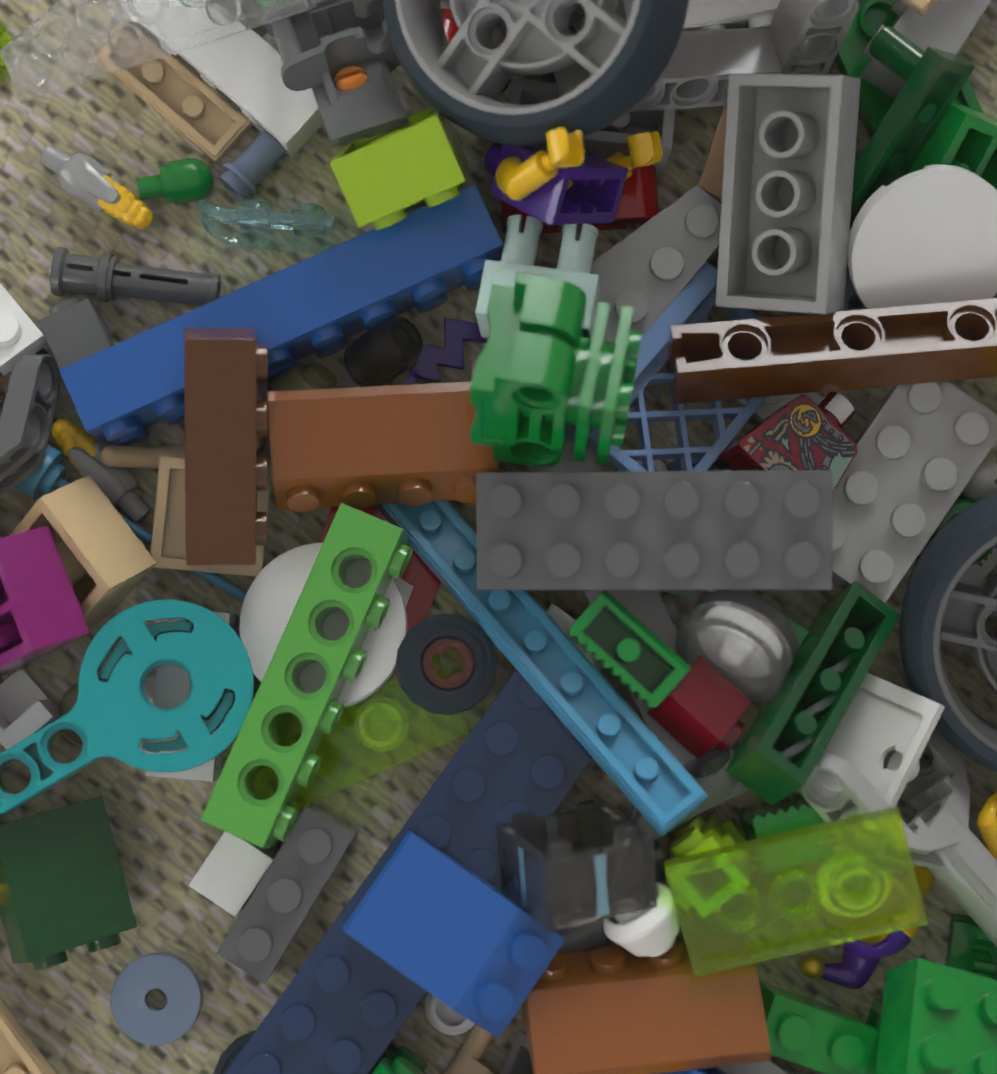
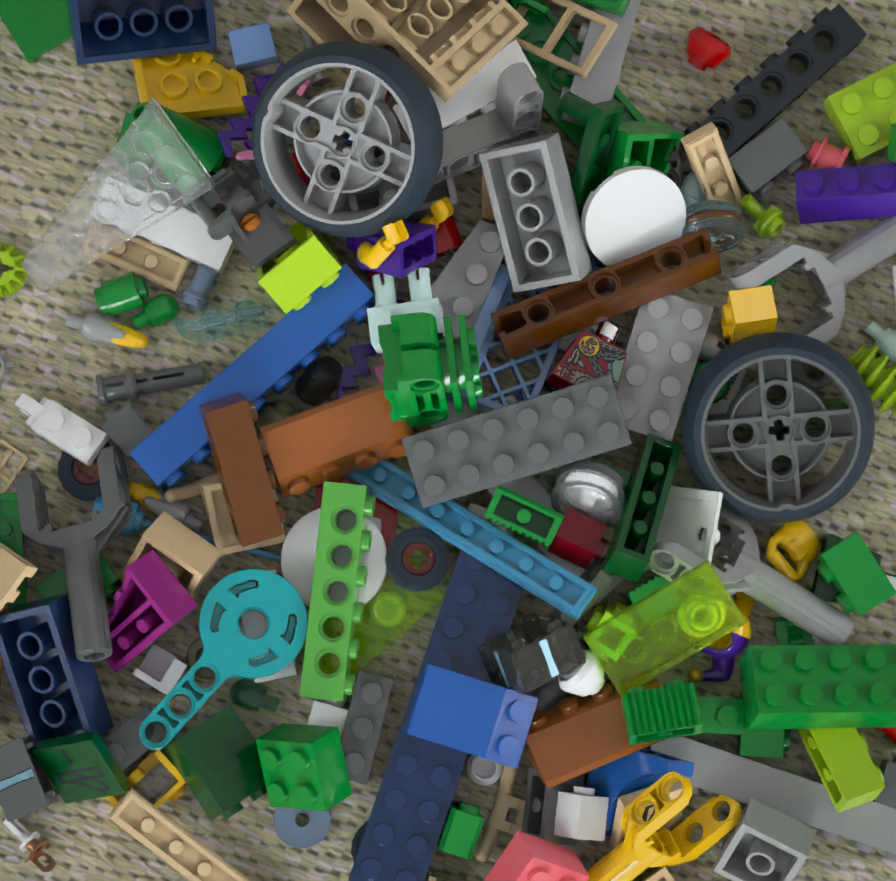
camera: 20 degrees left, 0 degrees up
(133, 139) = (121, 294): none -> green brick
(139, 793) = (252, 696): none -> clear green cylinder
(175, 929) = (304, 766): none -> green brick
(751, 1023) = (661, 712): none -> green brick

